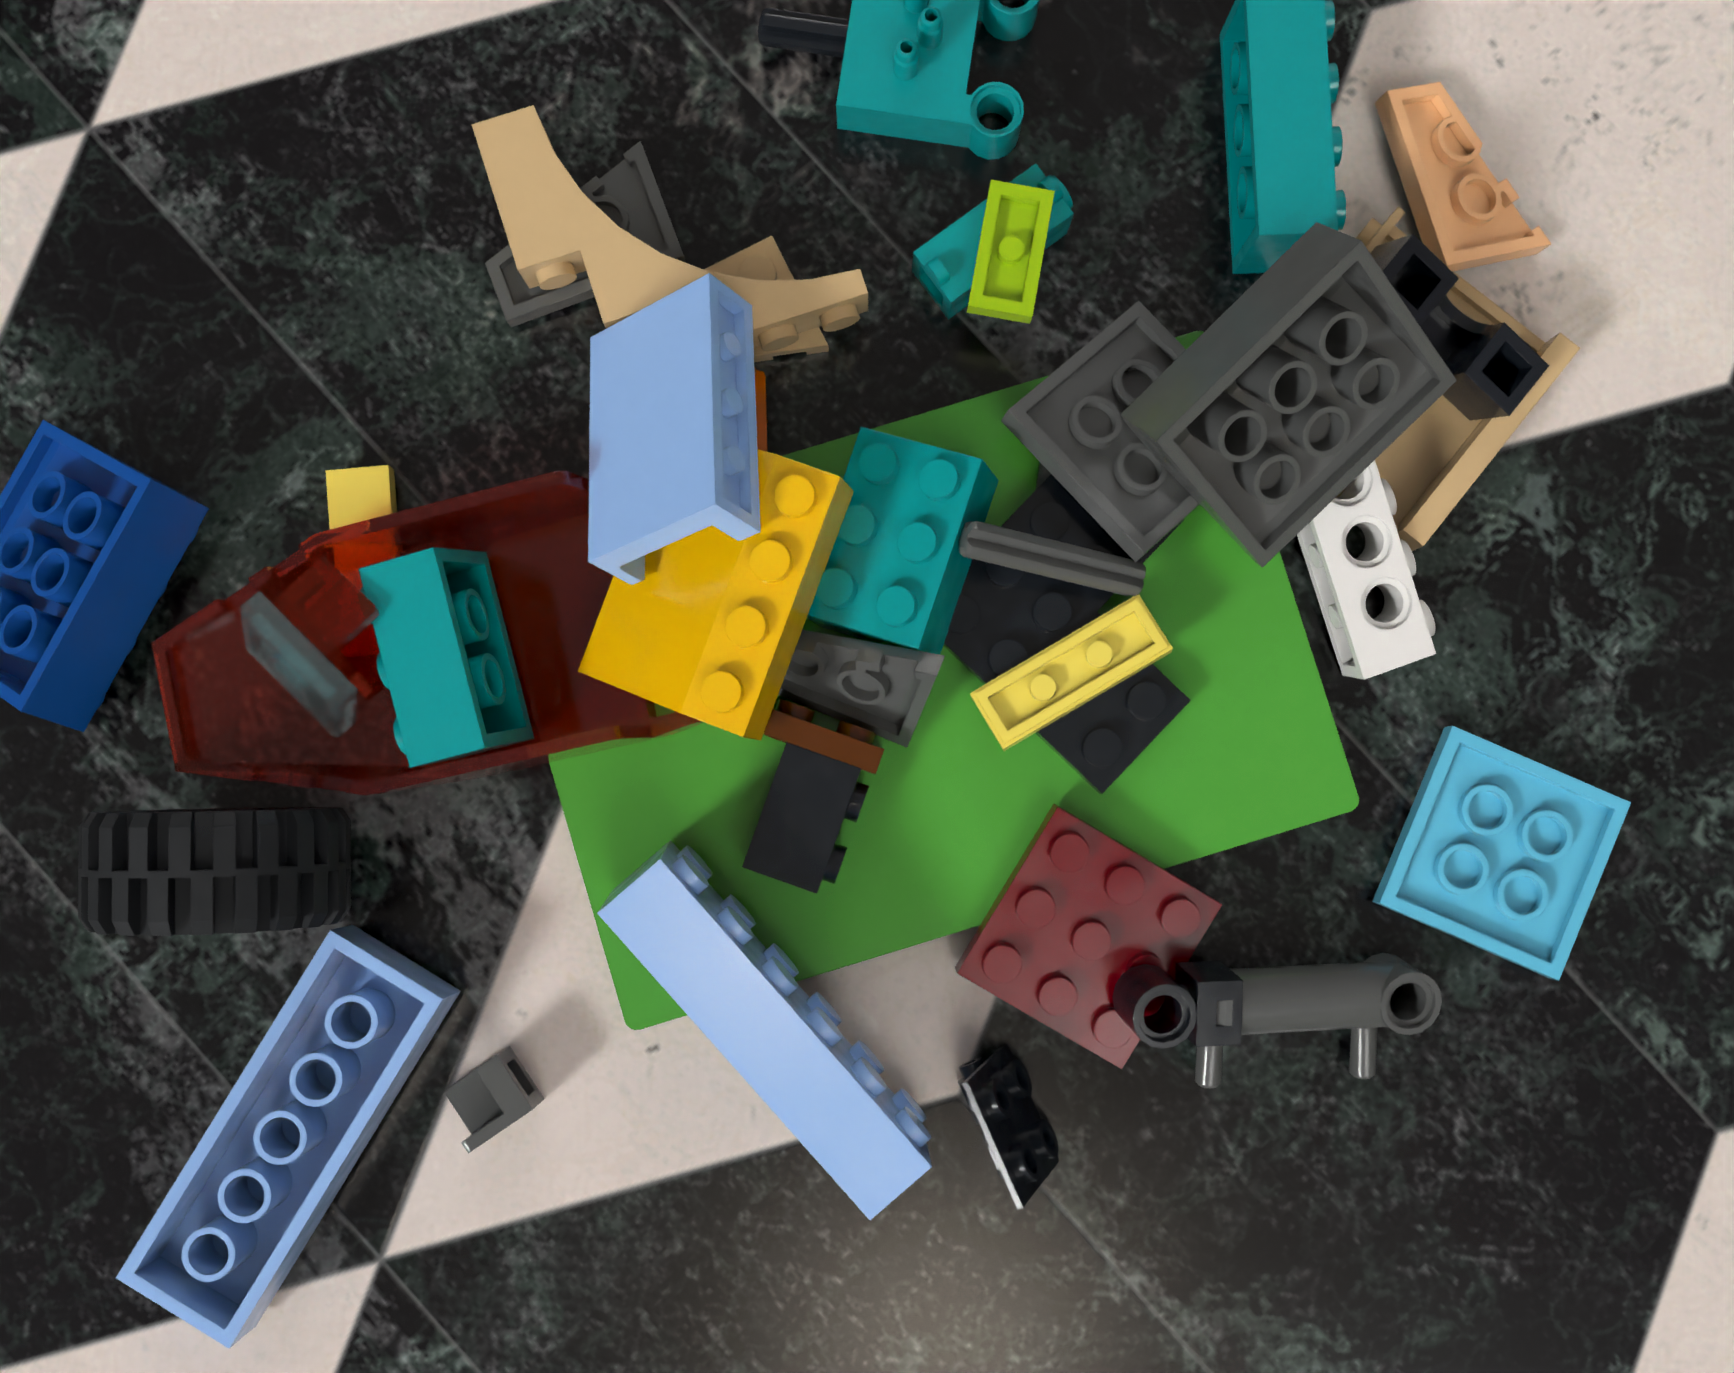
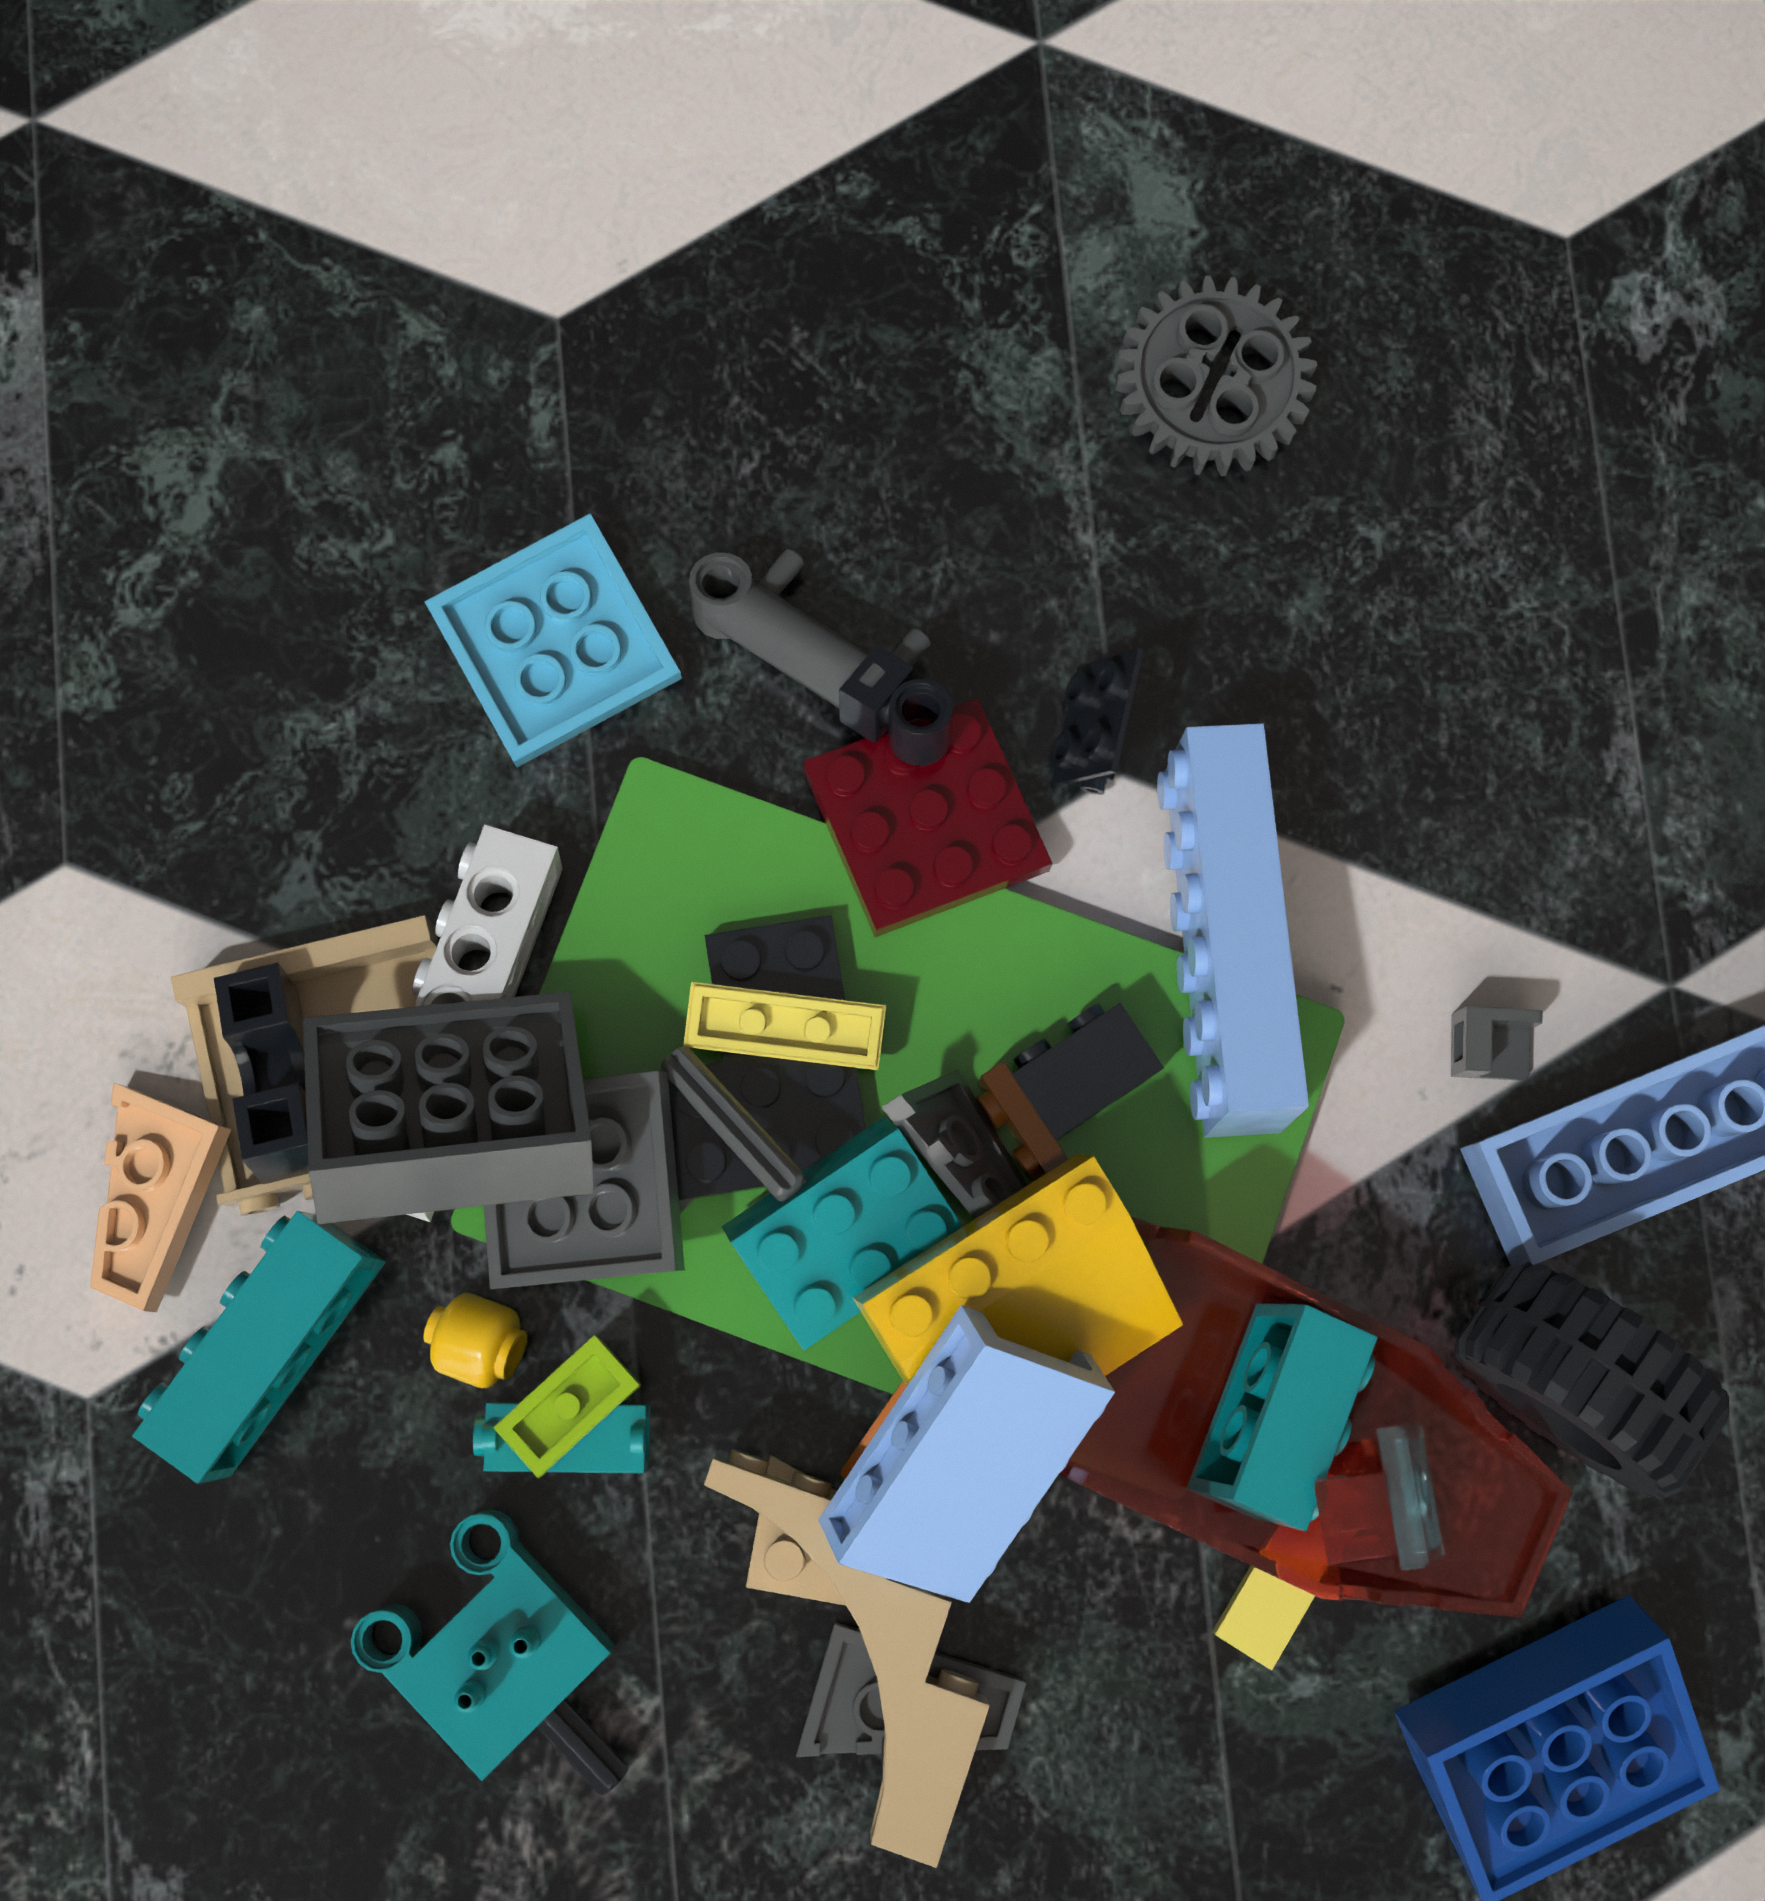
camera: 150 degrees left, 5 degrees down
(1118, 259) = (475, 1340): none -> yellow head

